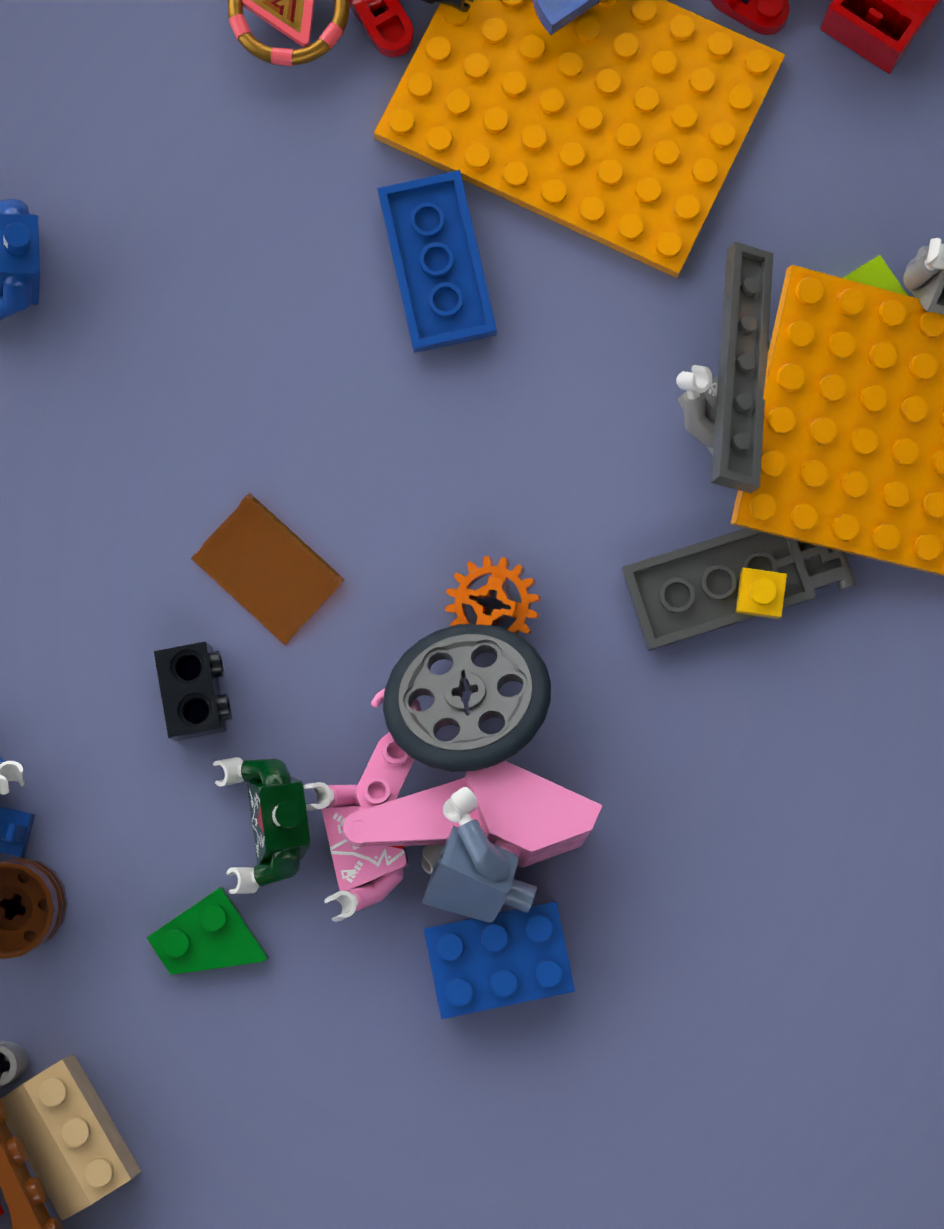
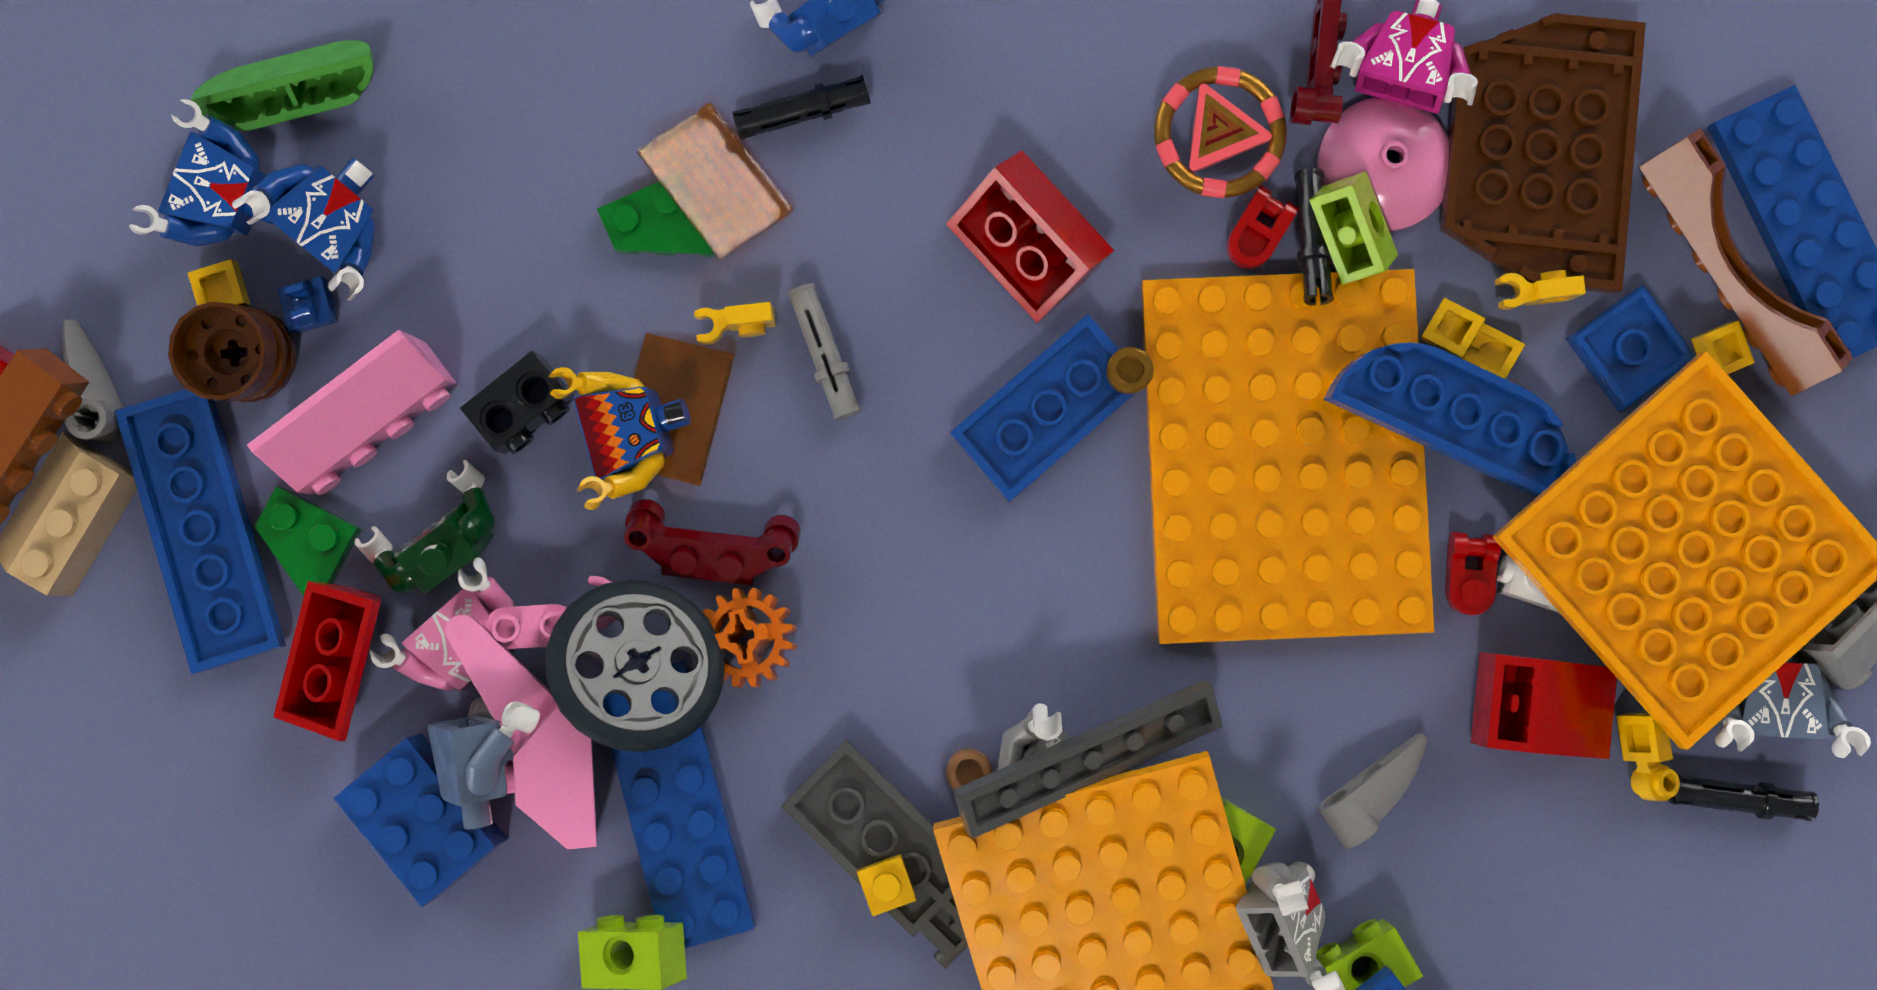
camera: 55 degrees right, 5 degrees up
(73, 342) = (792, 110): none -> black pin
(97, 431) = (715, 181): none -> clear orange piece
(102, 498) = (651, 223): none -> green wing
(124, 829) = (355, 414): none -> bright pink slope
(146, 1022) = (200, 529): none -> blue plate
(227, 464) = (747, 319): none -> yellow plate
(240, 410) = (842, 401): none -> light grey pin
(261, 613) = (622, 430): none -> torso
(287, 202) = (1029, 235): none -> red slope
(321, 958) = (327, 658): none -> red slope
(405, 599) = (706, 553): none -> dark red plate
(442, 177) = (1129, 370): none -> pearl gold tile
(629, 748) = (683, 831): none -> blue plate
(697, 484) = (966, 767): none -> medium nougat tile
(707, 861) = (608, 958): none -> lime brick
(890, 171) = (1368, 797): none -> light grey piece

